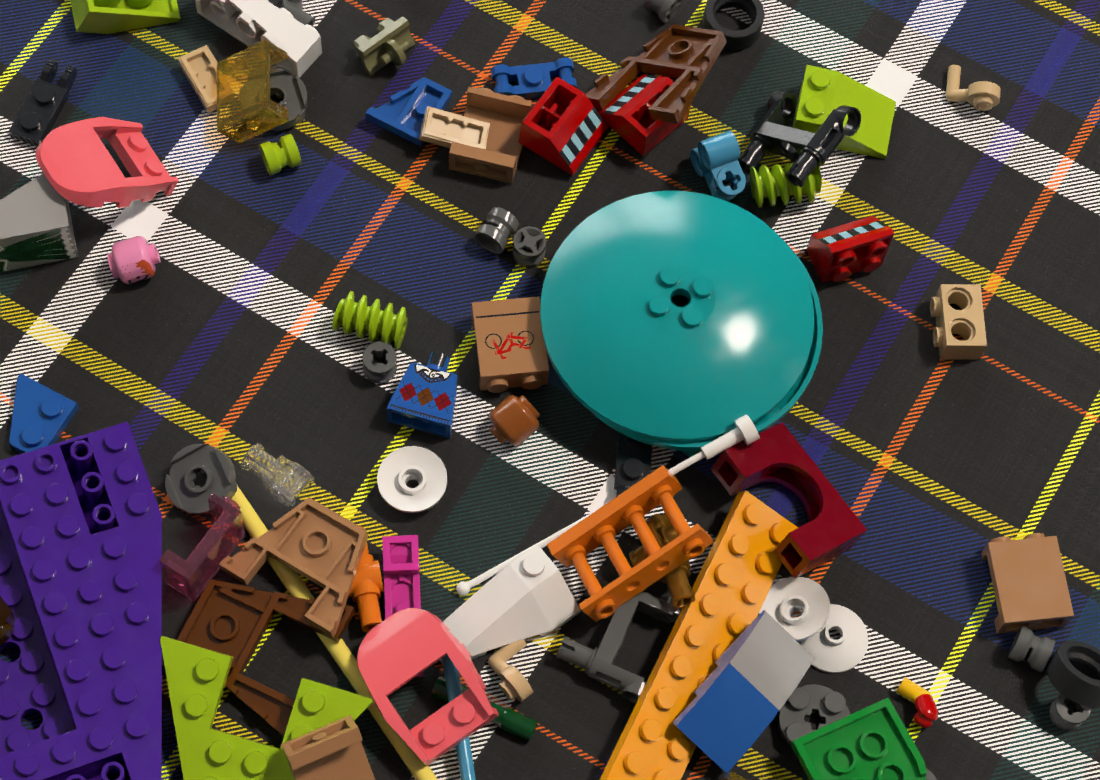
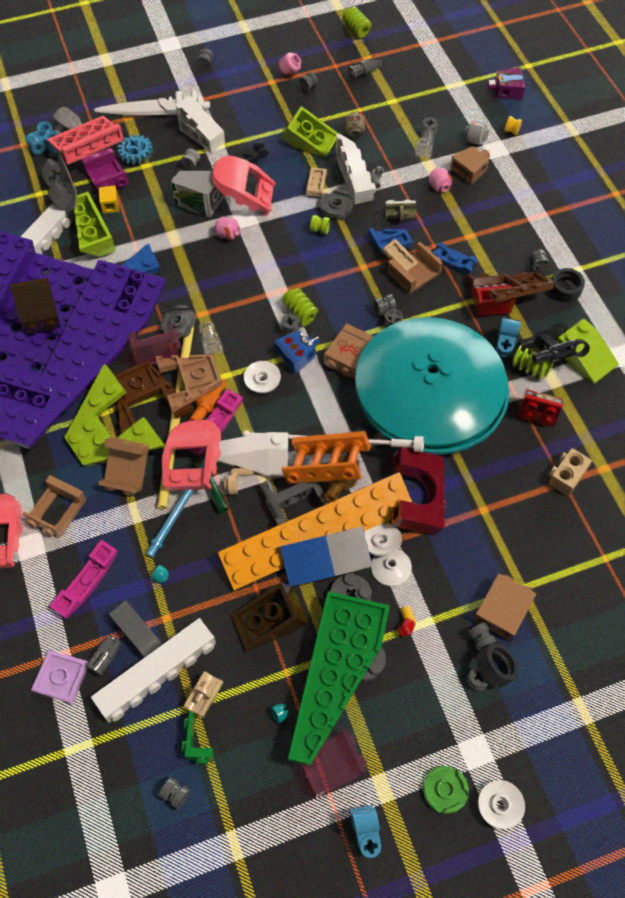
camera: 45 degrees right, 5 degrees down
(244, 93) = (318, 199): clear yellow panel -> none
(514, 420) = (325, 381): dark orange head -> none
(562, 126) = (448, 281): red slope -> none

